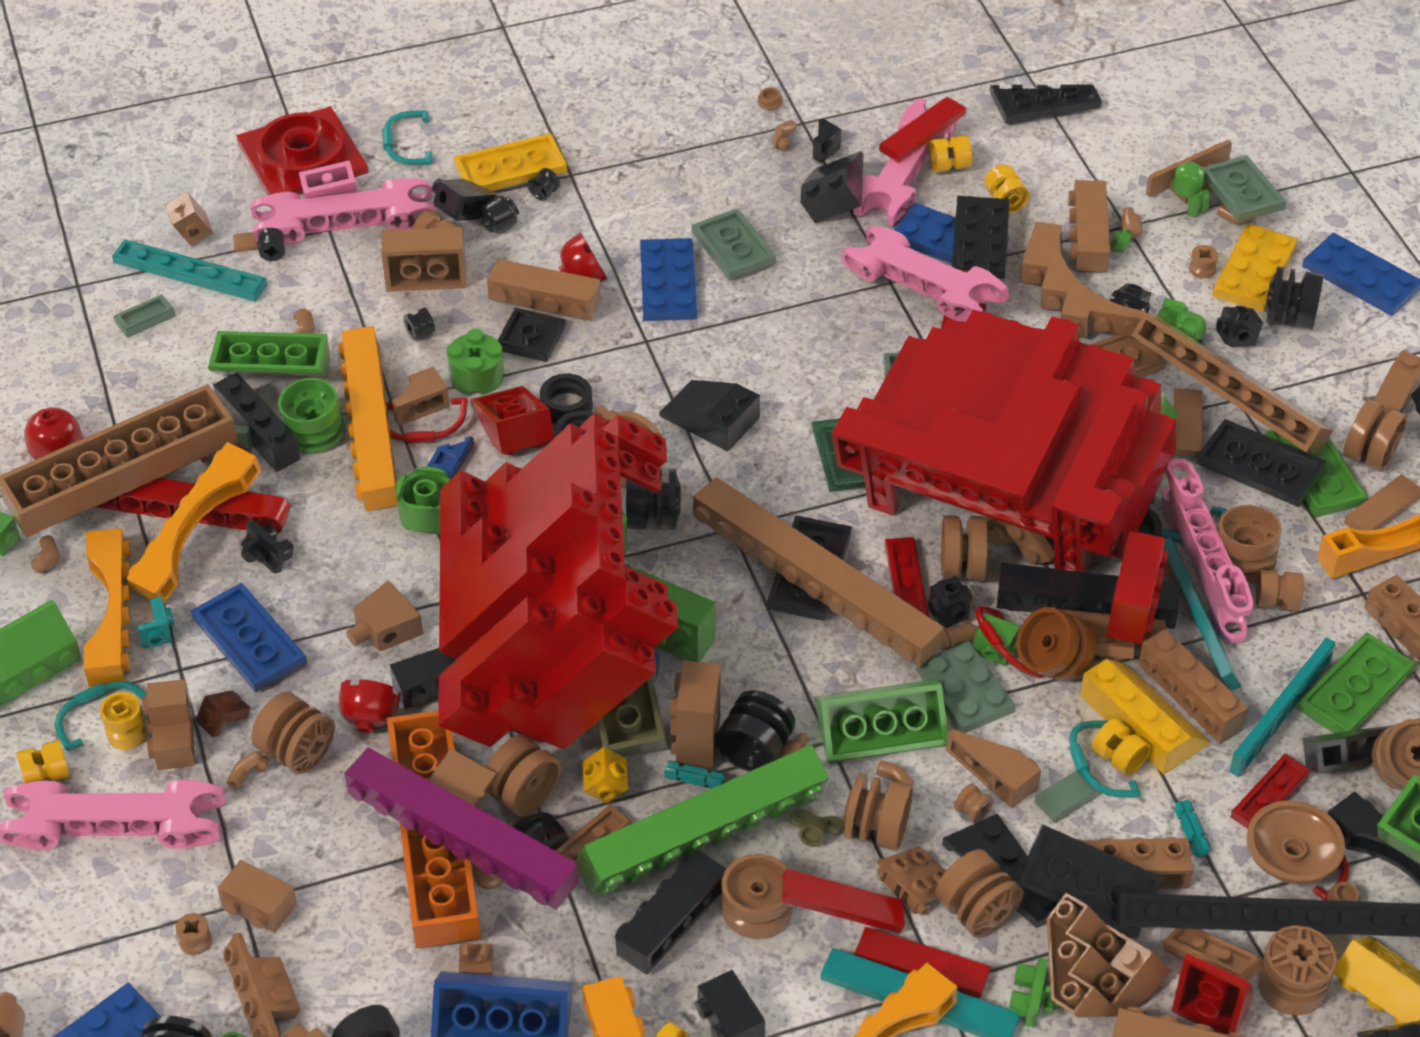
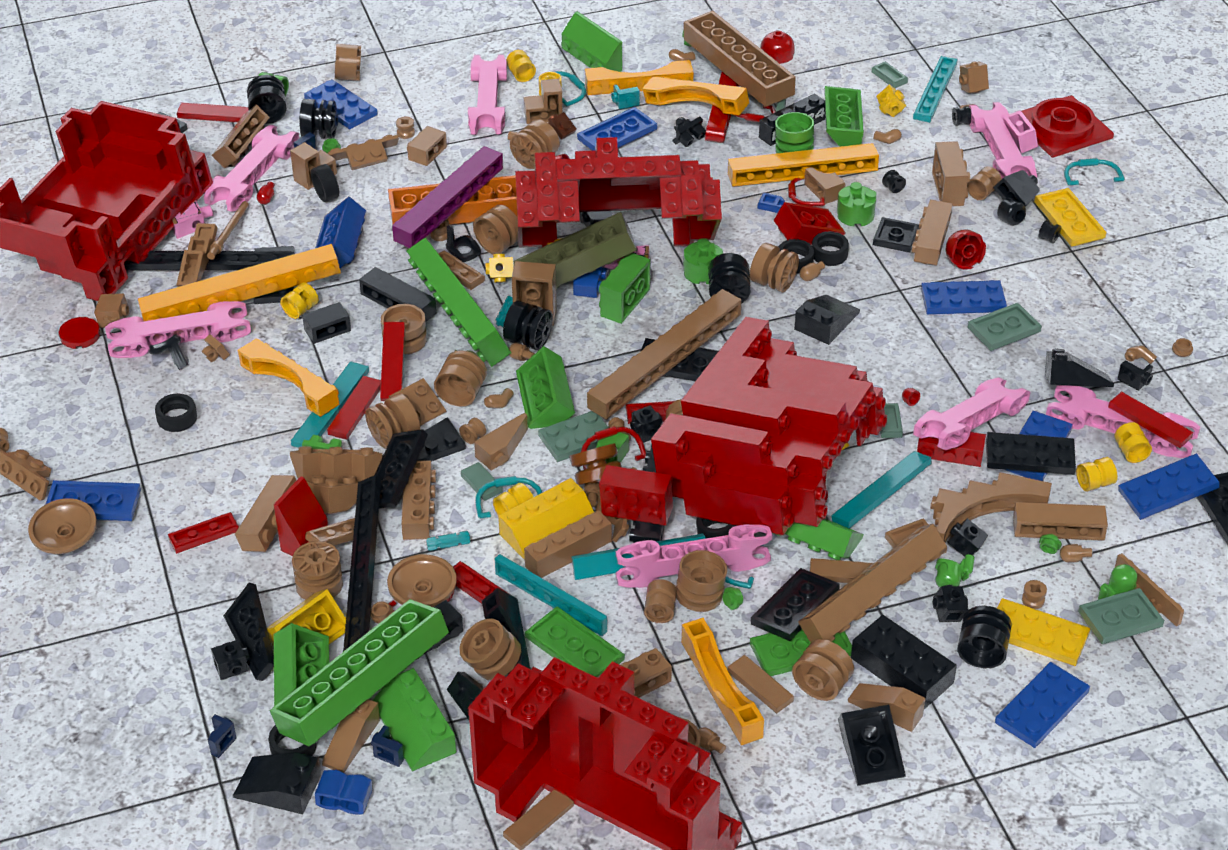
camera: 90 degrees right, 5 degrees down
(220, 310) = (891, 101): none -> yellow brick
(420, 499) = (731, 187): bright green brick -> none
(463, 777) = (484, 197): medium nougat piece -> none
(476, 959) = (378, 228): medium nougat tile -> none
(869, 340) = (910, 396): none -> red hinge
(1019, 135) = (1168, 486): none -> blue plate
(1335, 372) = (903, 660): none -> black brick

